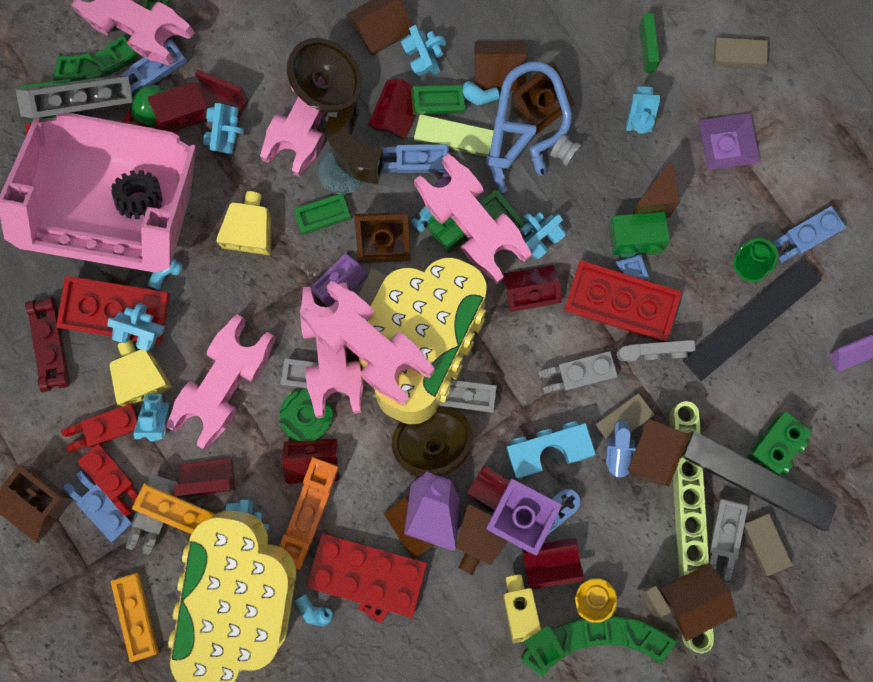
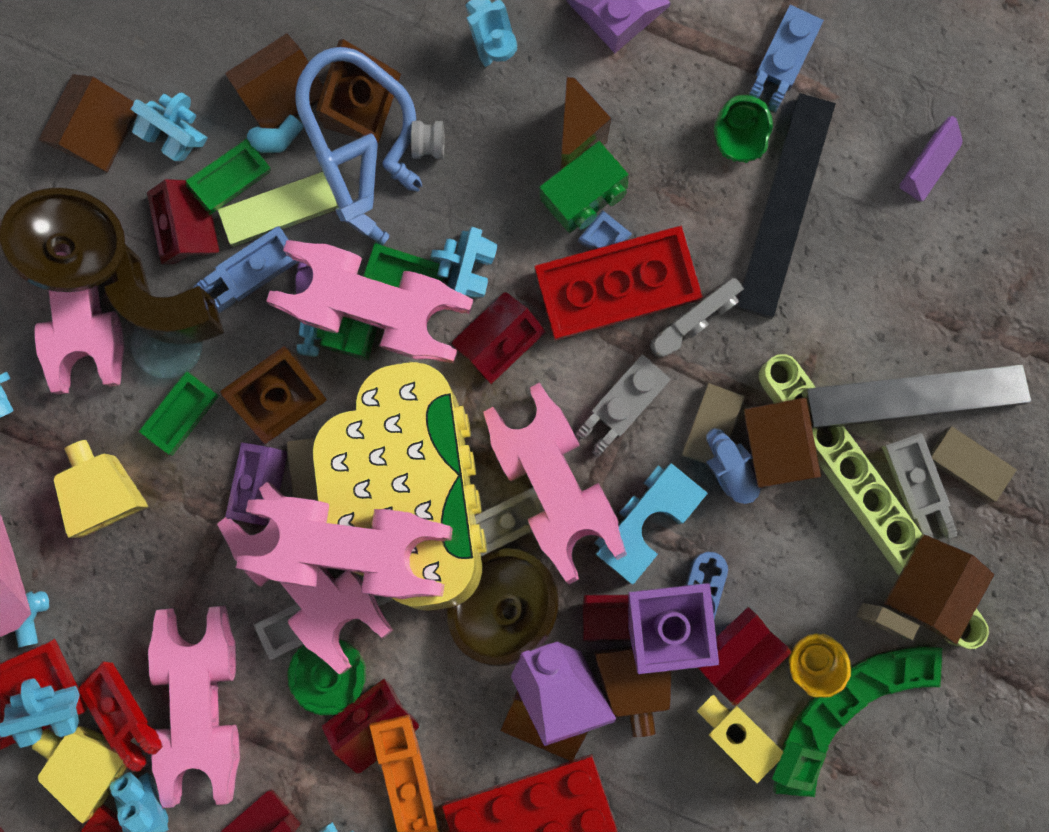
camera: 35 degrees left, 5 degrees up
(177, 358) = (119, 716): none -> red hinge
(506, 410) = (567, 509): none -> bright pink piece
(780, 444) = (912, 335): green brick -> none

